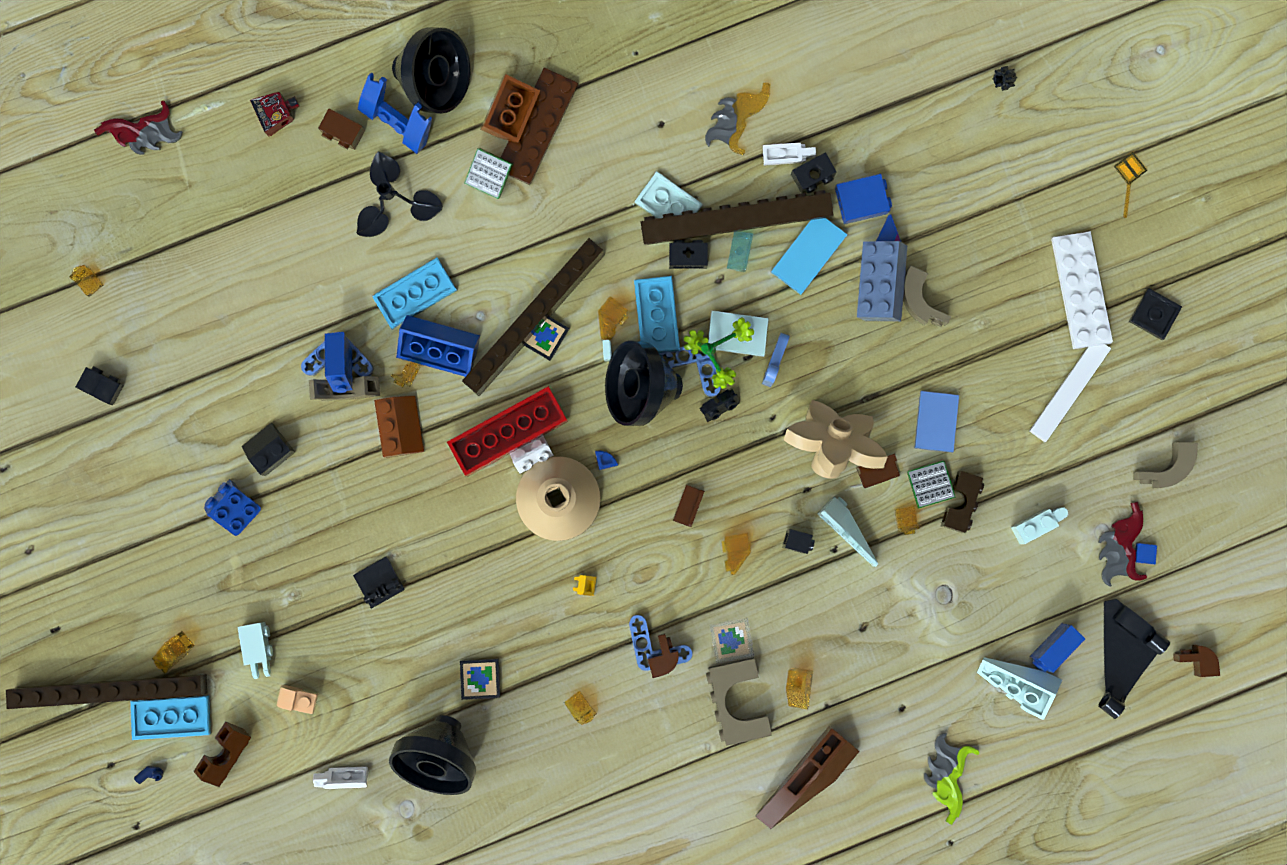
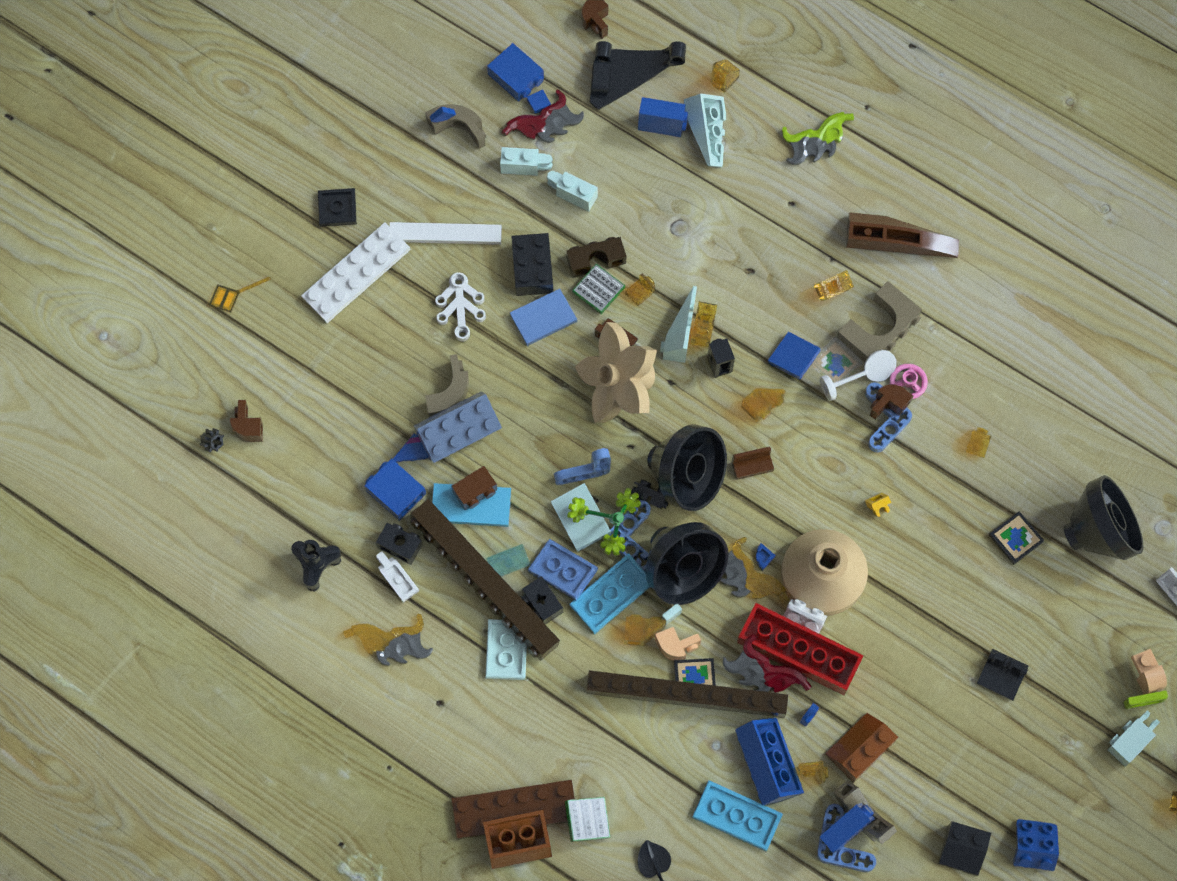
camera: 130 degrees left, 15 degrees down
(278, 681) = (1146, 699): none -> lime tile
(453, 407) = (811, 712): none -> blue tile
(511, 387) = (761, 673): none -> piece
(580, 332) = (672, 647): none -> light nougat brick
(599, 431) = (742, 575): none -> clear yellow piece
(660, 692) = (911, 374): none -> bright pink piece
(702, 669) = (877, 368): none -> white piece
(703, 289) = (563, 569): none -> medium blue tile
(715, 443) = (689, 466): none -> black cone
(760, 608) = (794, 355): none -> blue tile
(818, 261) = (474, 488): none -> reddish brown brick
(838, 550) = (704, 324): none -> clear yellow slope
(842, 92) = (315, 565): none -> black wheel
(990, 442) = (532, 264): none -> black brick
(995, 359) = (460, 303): none -> white plant
(999, 111) = (246, 428): none -> reddish brown brick
(1063, 734) = (724, 75): none -> clear yellow slope
(1094, 499) = (524, 161): none -> light aqua hinge
(1184, 455) = (442, 114): none -> blue tile
(1187, 551) = (515, 72): none -> blue brick

